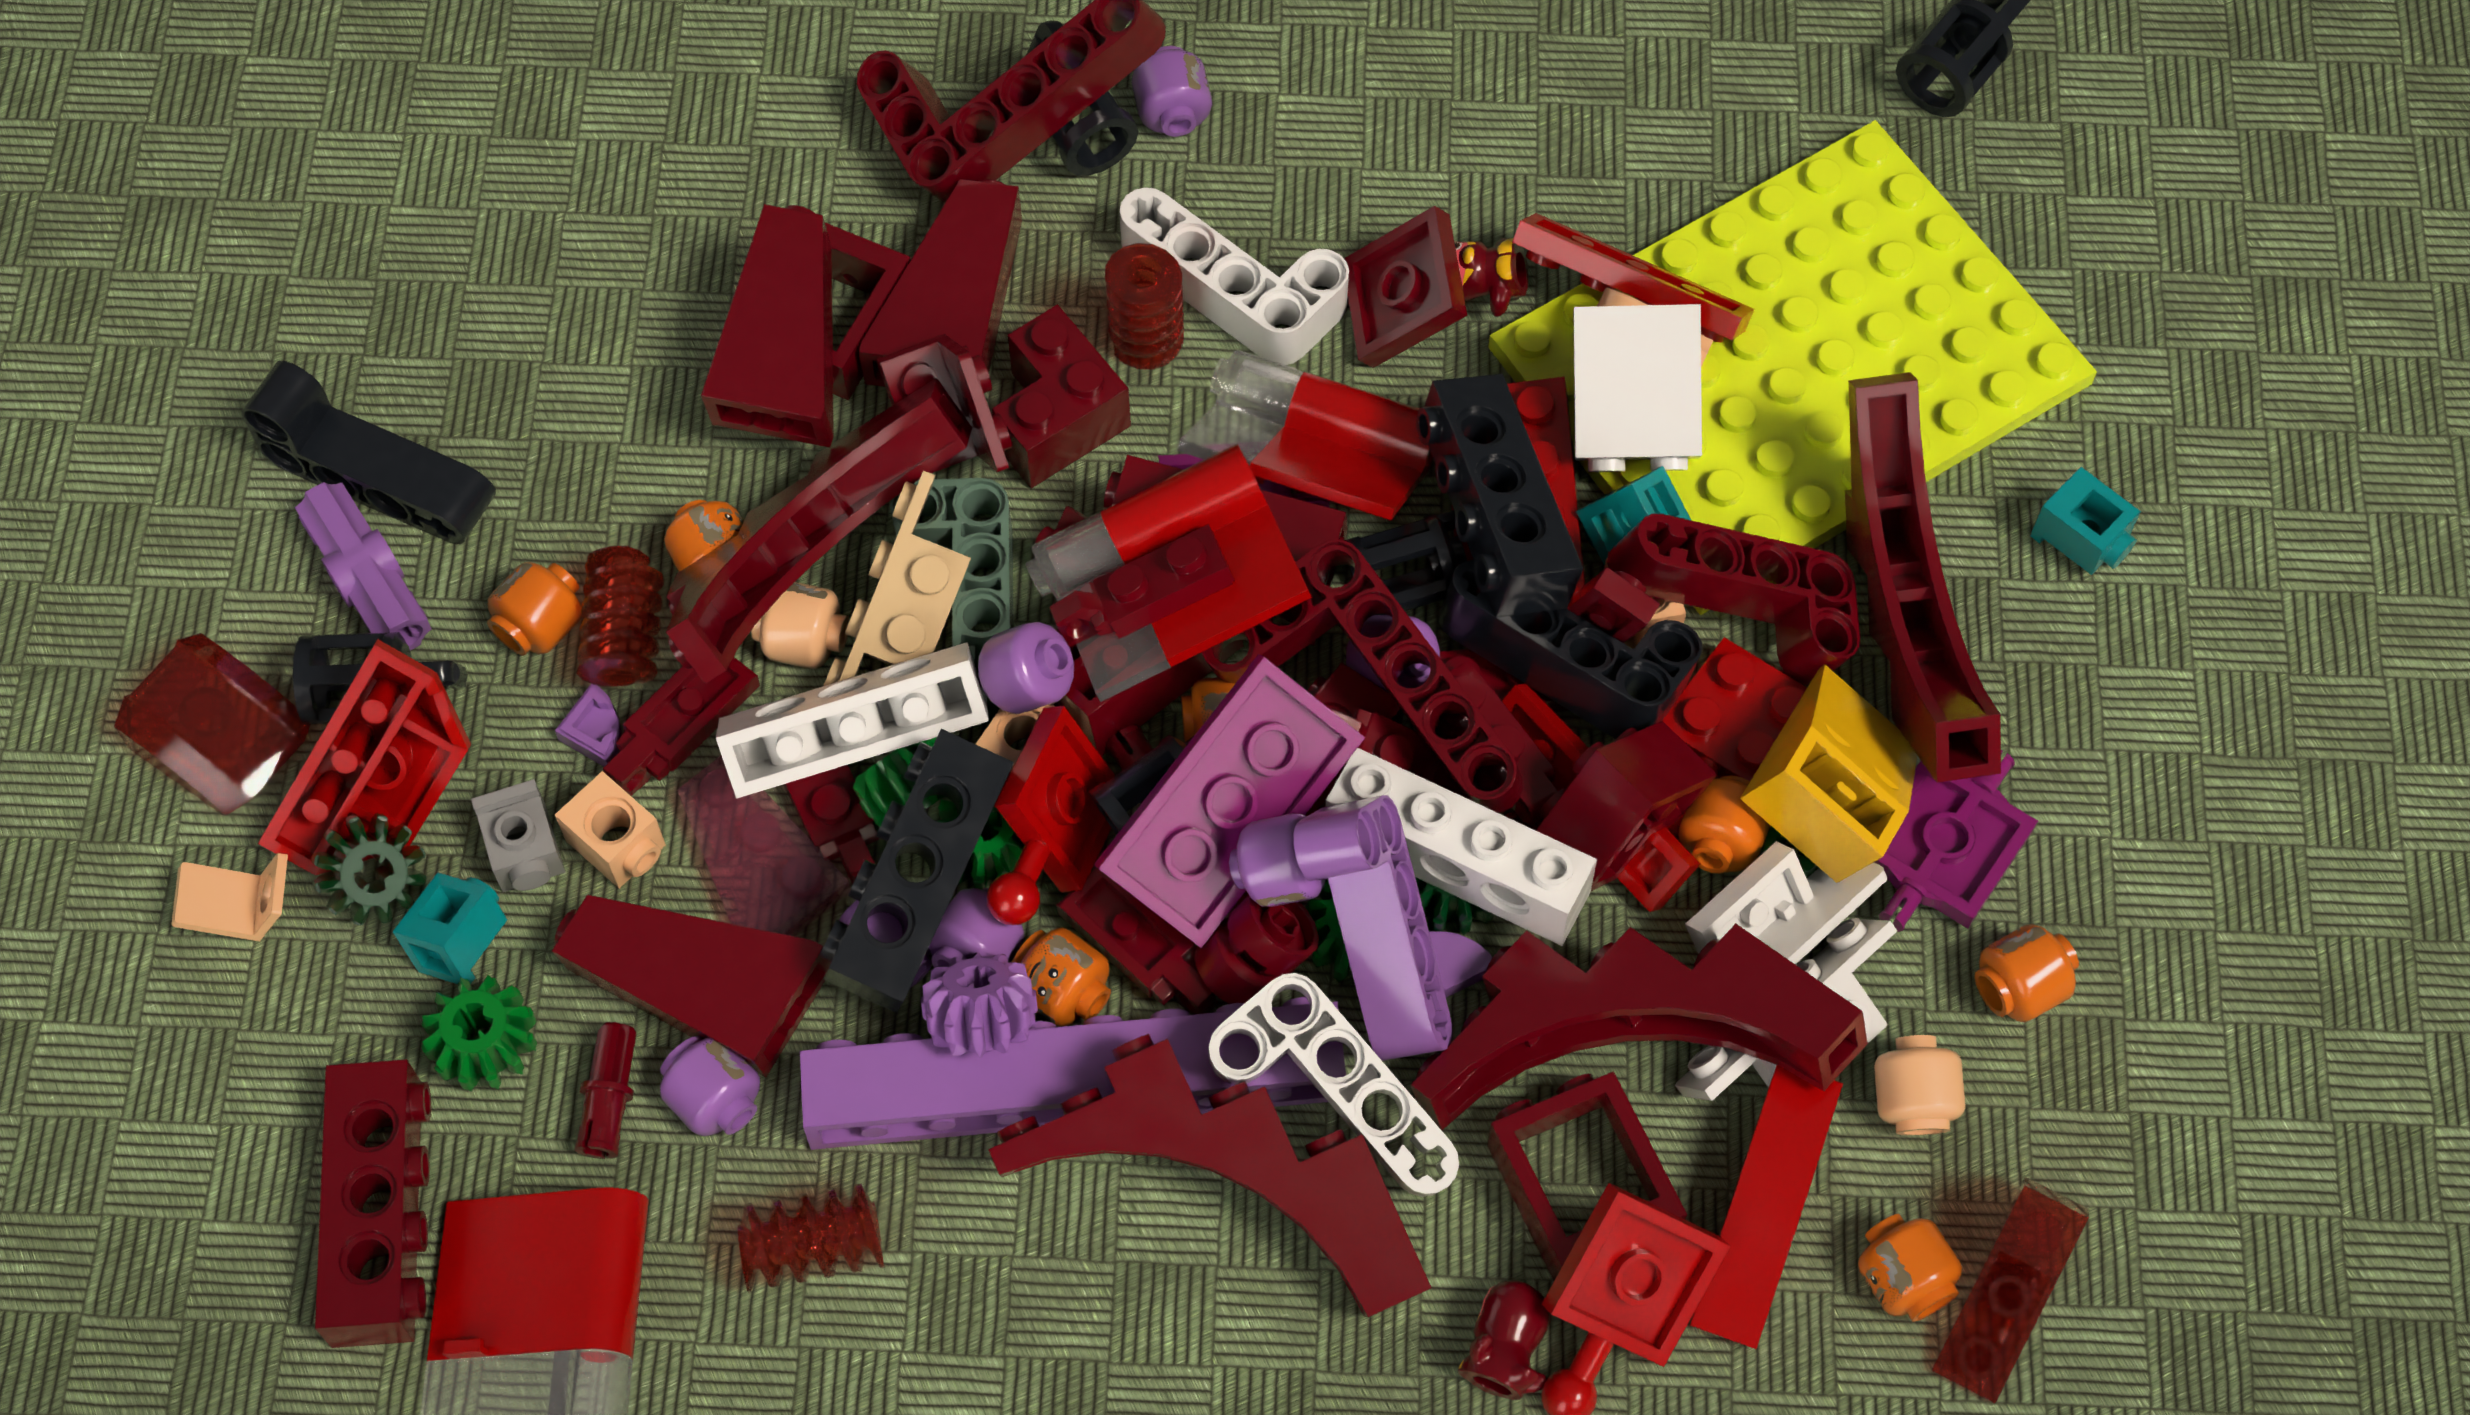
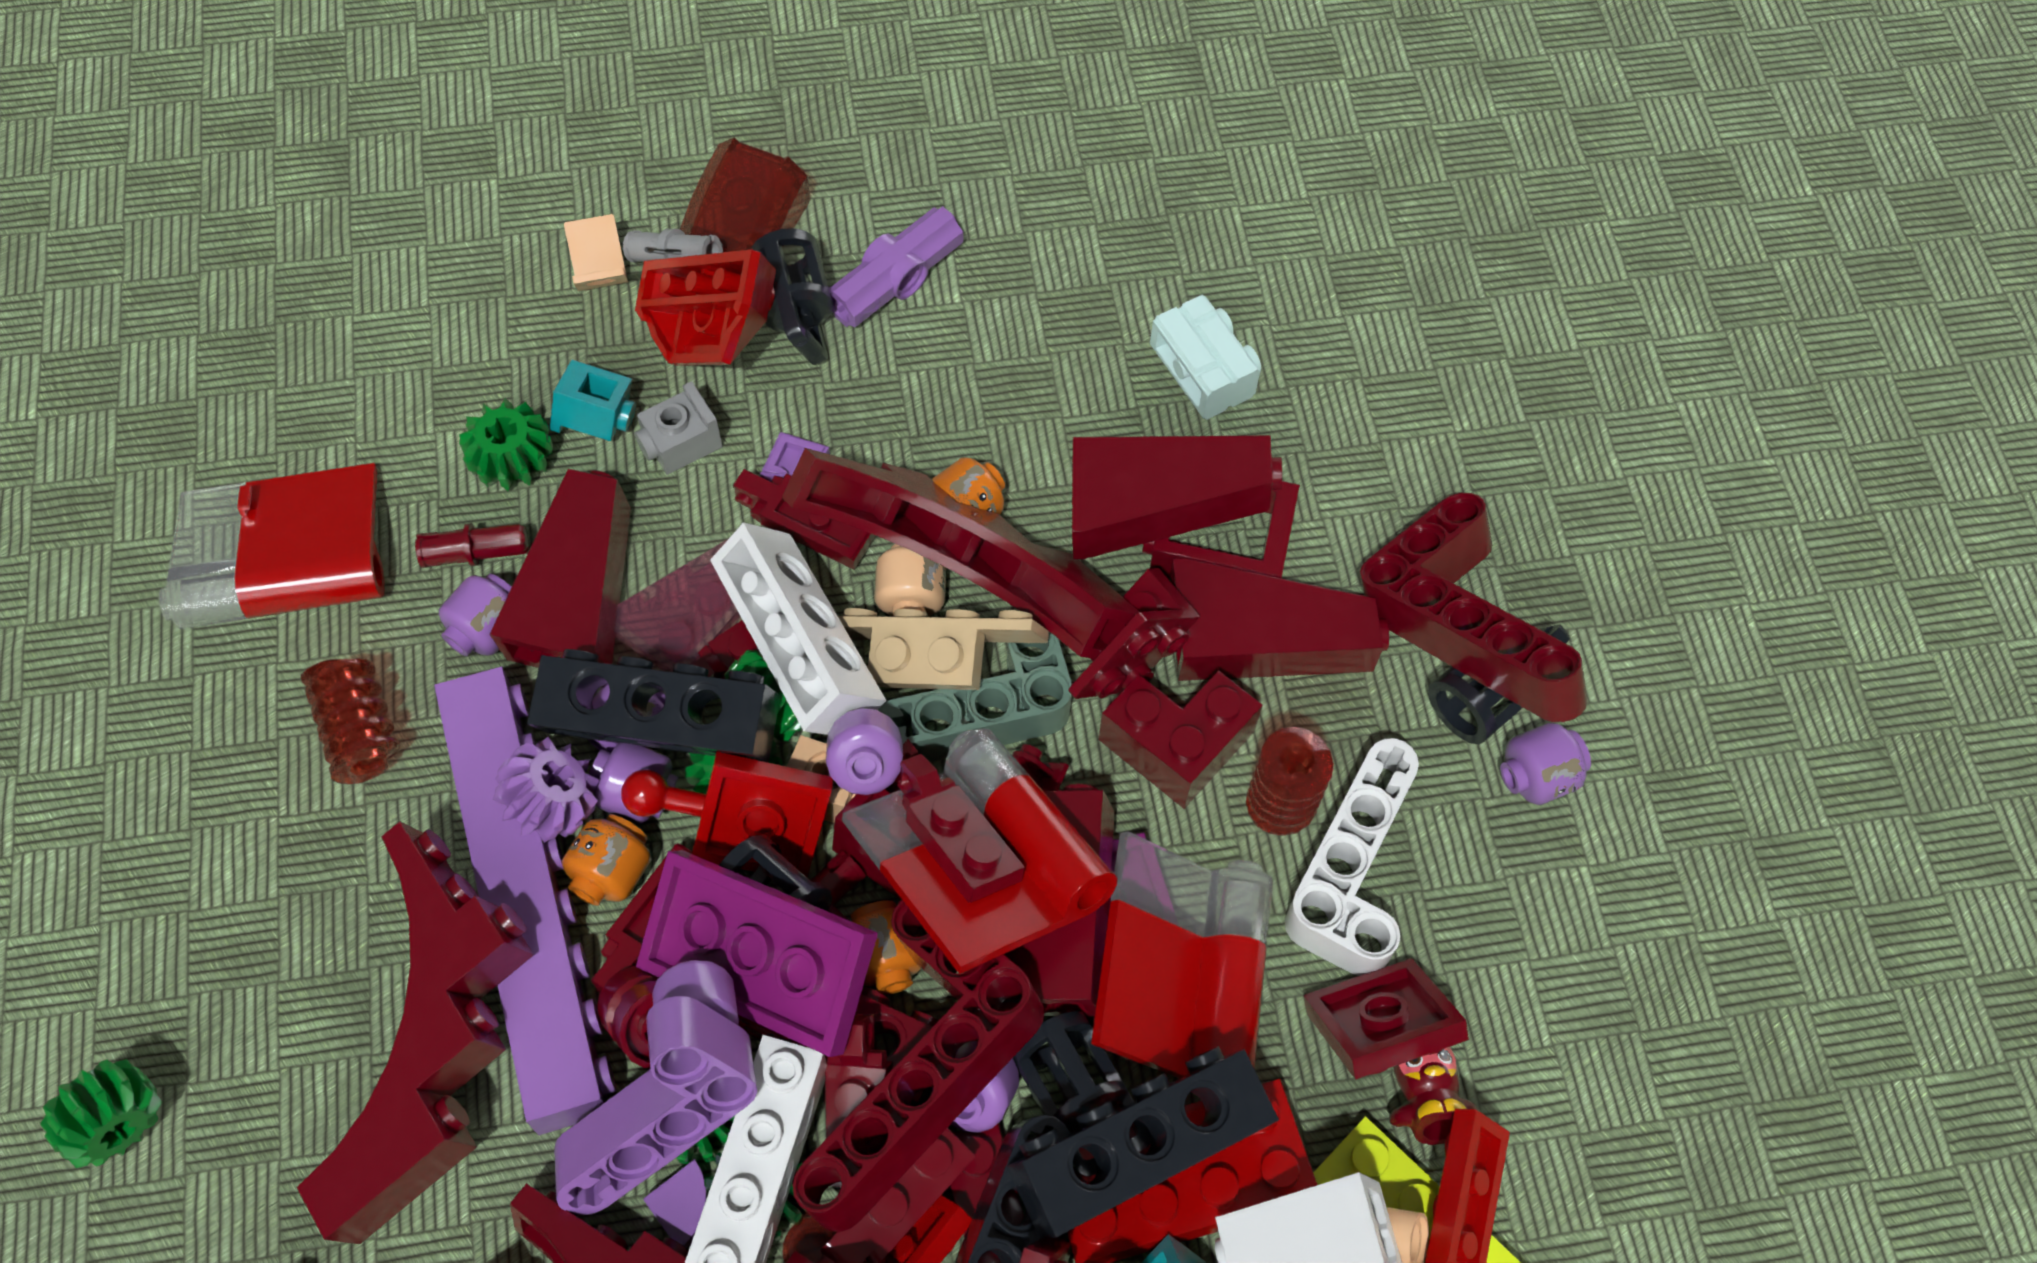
camera: 75 degrees right, 0 degrees up
(255, 804) = (669, 243): none -> light grey pin
(348, 860) = (626, 332): dark green gear -> none
(355, 1105) = (332, 405): dark red brick -> none
(378, 468) = (987, 237): black beam -> none
(534, 608) = (884, 389): orange head -> none
(598, 275) = (1205, 356): none -> light aqua brick
(604, 807) = (693, 471): light nougat brick -> none
(619, 618) = (889, 444): clear red piece -> none
(1343, 1093) = (437, 1200): white beam -> none

